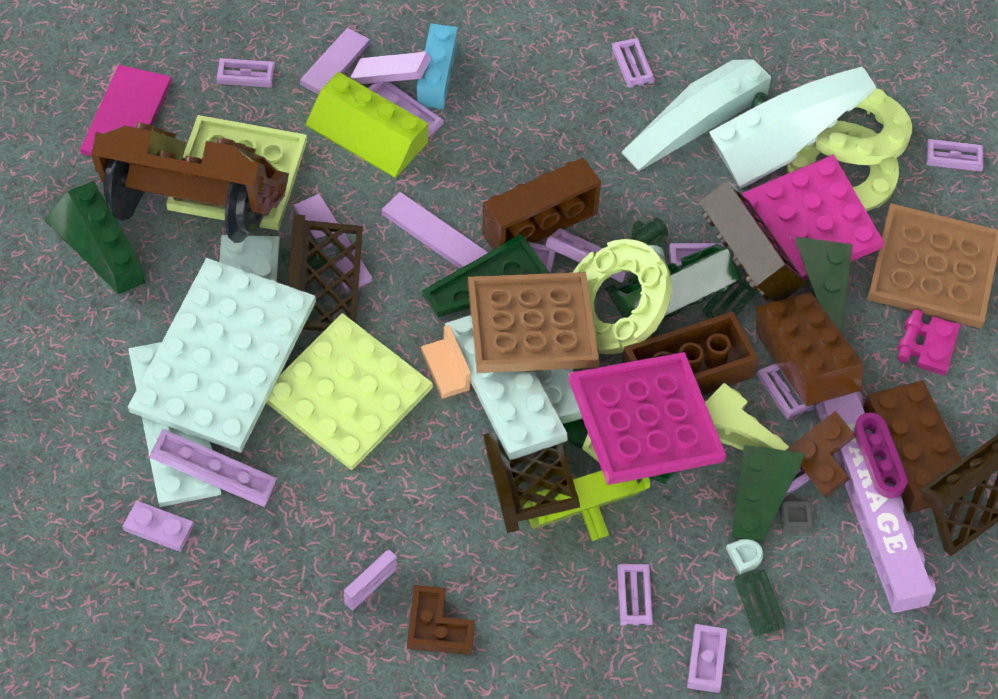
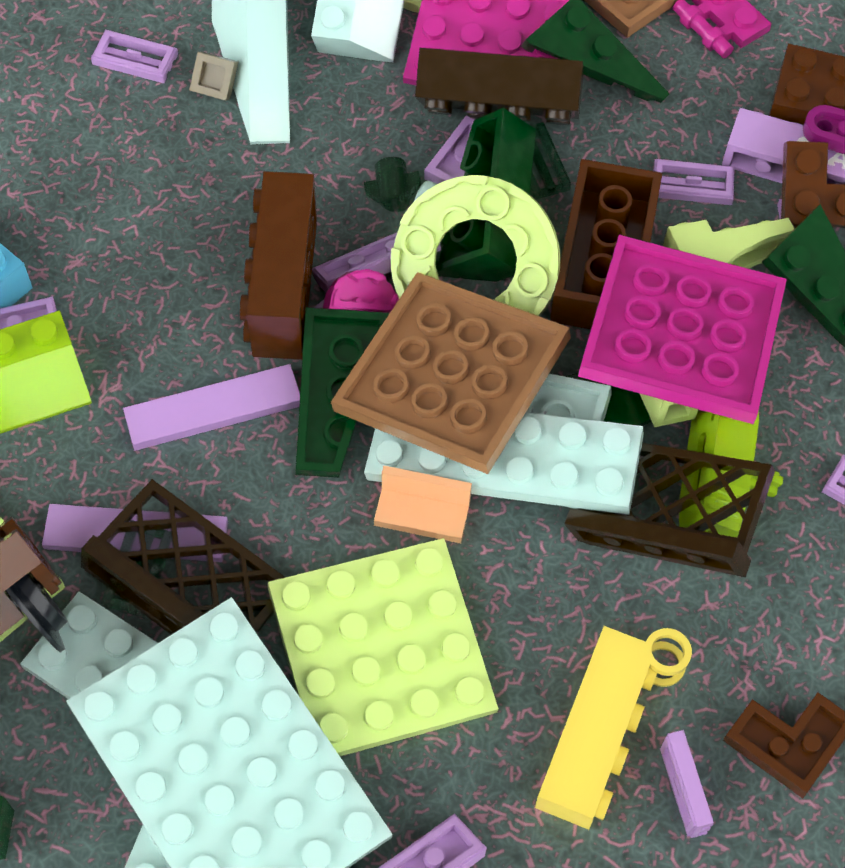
camera: 55 degrees left, 5 degrees up
(380, 517) = (599, 719): none -> light yellow hinge
(555, 255) = (361, 292): none -> dark pink plate
(648, 106) = (213, 75): none -> plate
(809, 349) = (677, 120): reddish brown brick -> none

